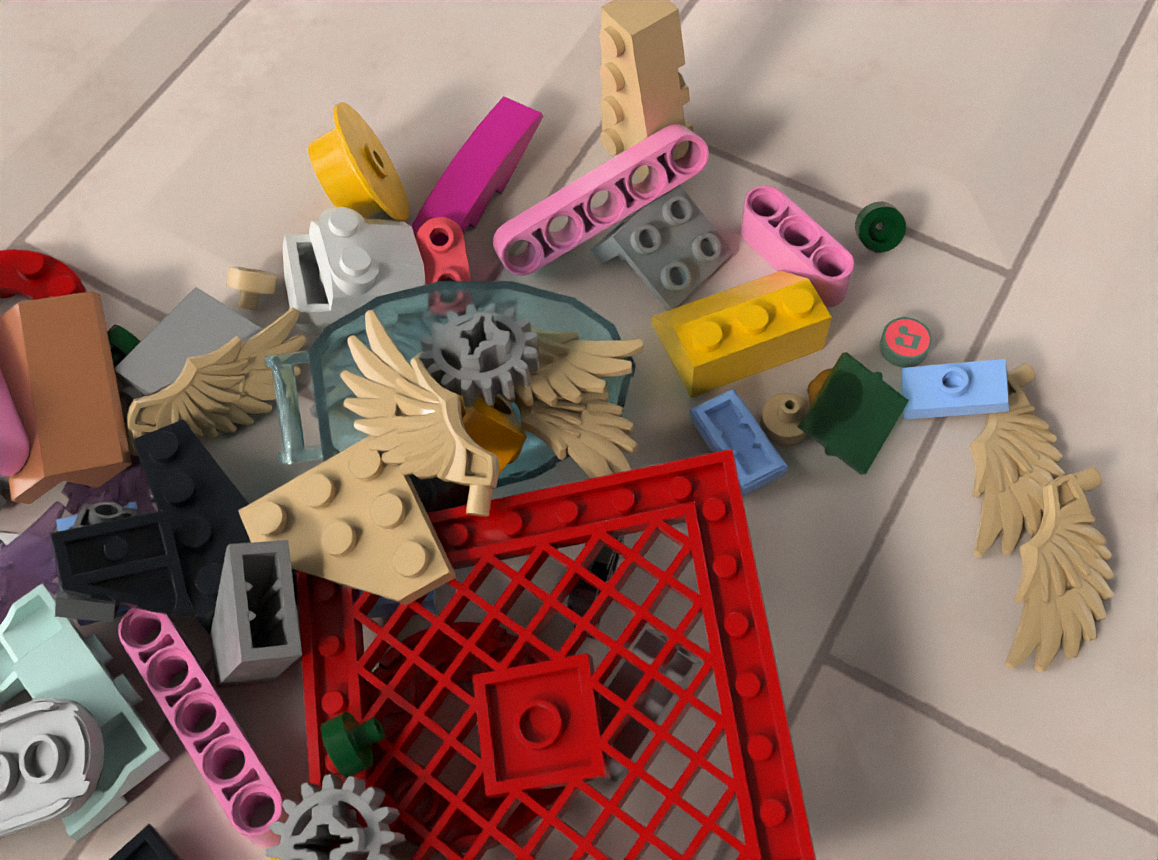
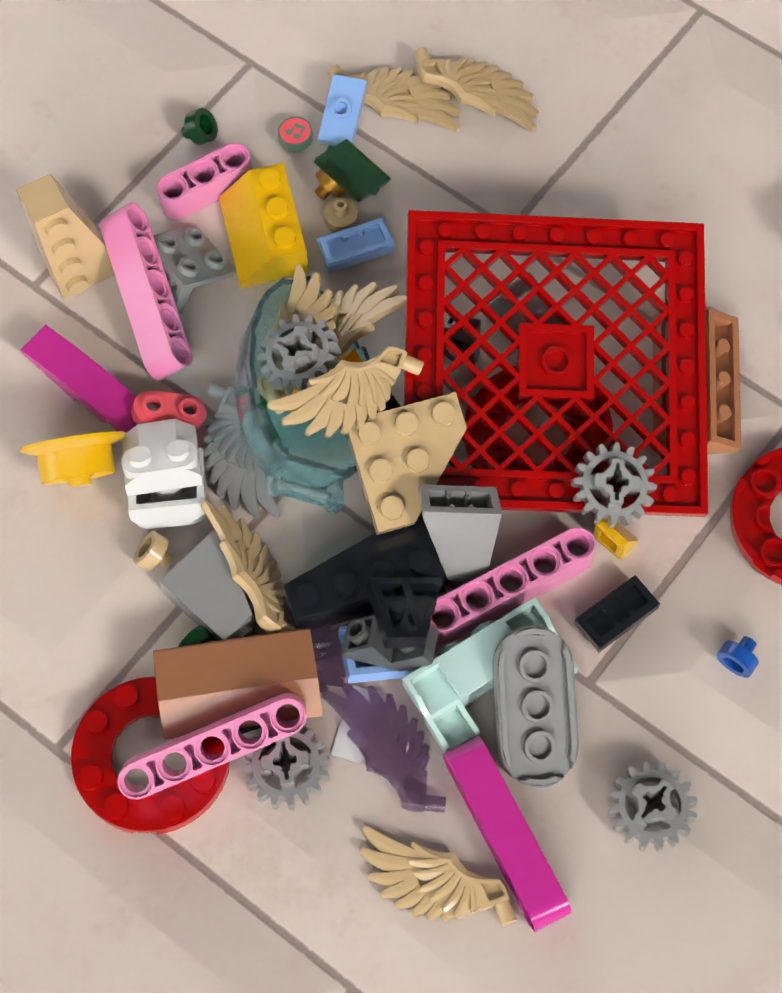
camera: 80 degrees left, 5 degrees up
(350, 742) = (552, 467): dark green tile -> none

